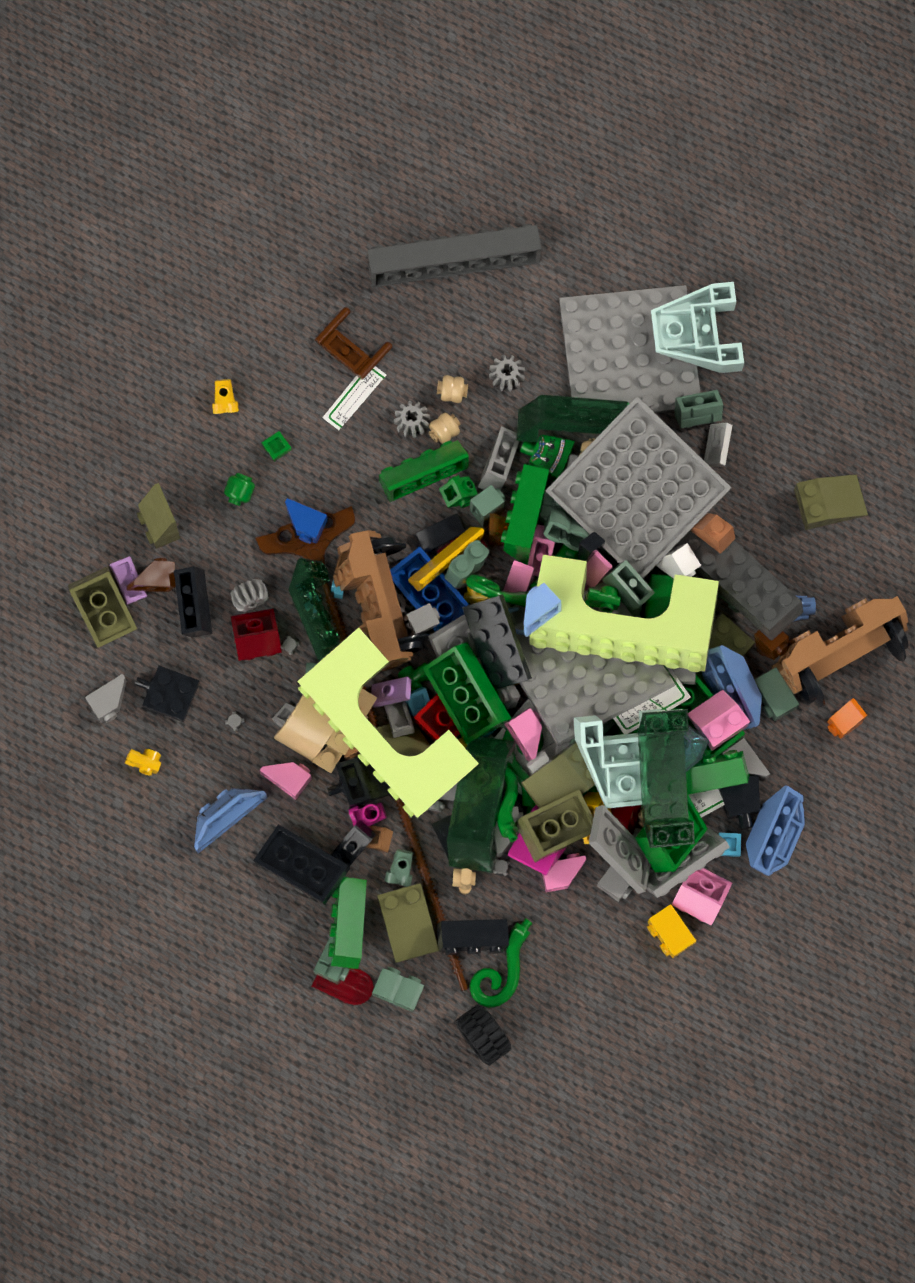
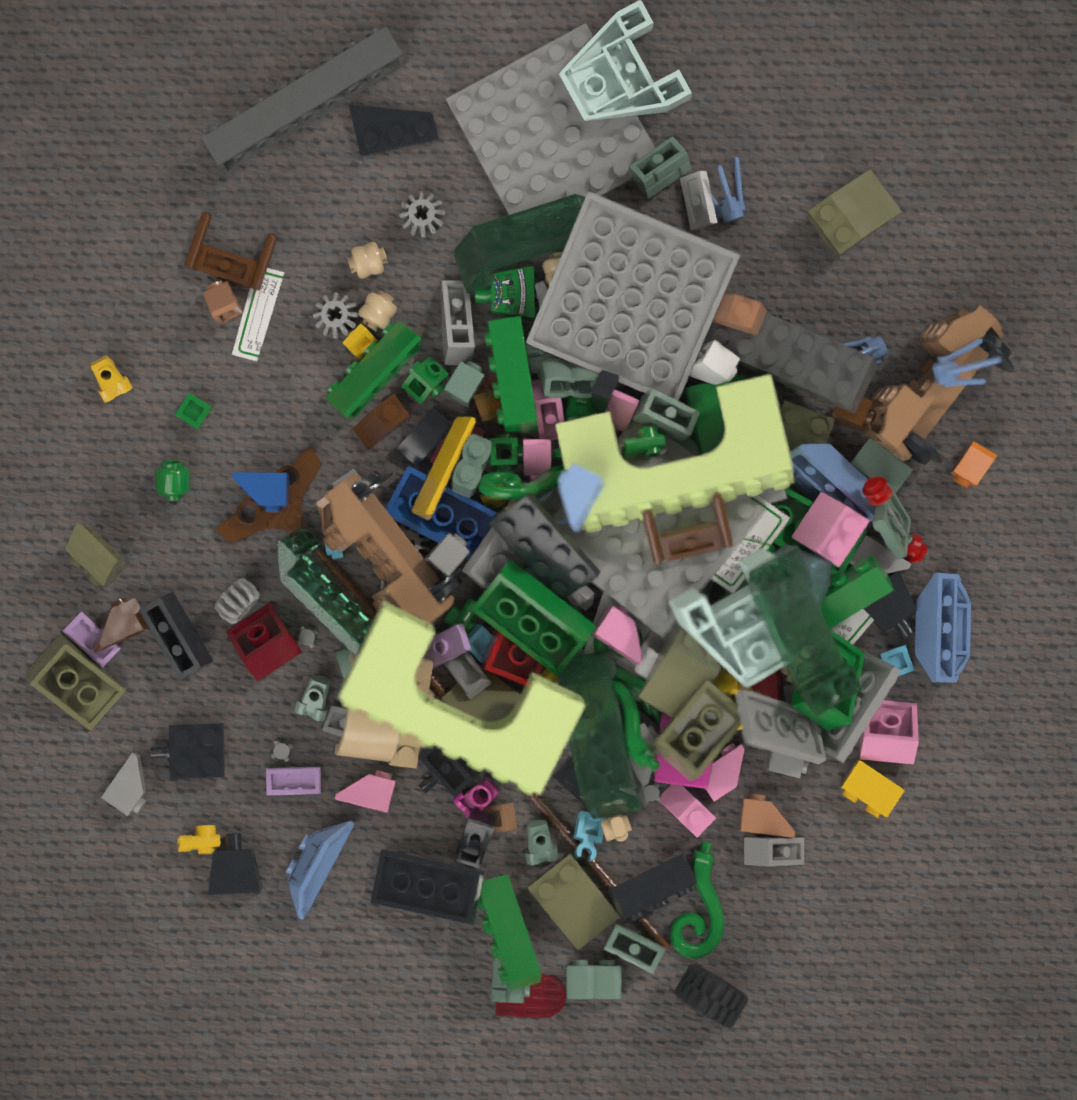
camera: 15 degrees left, 10 degrees up
(161, 793) = (234, 869): none -> black torso
(234, 746) = (293, 780): none -> lavender plate
(273, 695) = (314, 698): none -> sand green plate
(331, 376) = (222, 302): none -> nougat slope
(413, 509) = (381, 421): none -> reddish brown slope
(420, 444) = (358, 341): none -> yellow plate
(439, 975) = (634, 948): none -> sand green brick
(442, 876) = (589, 832): none -> medium azure plate
(498, 561) = (505, 442): none -> green brick
(509, 303) = (390, 129): none -> black wing
(523, 889) = (686, 809): none -> bright pink slope
(577, 948) = (773, 851): none -> light grey slope
(579, 919) = (763, 817): none -> nougat slope
(609, 680) = (691, 539): none -> reddish brown plate
(739, 460) = (730, 208): none -> medium blue plant
(768, 734) = (893, 521): none -> plate
(852, 633) = (947, 371): none -> medium blue plant

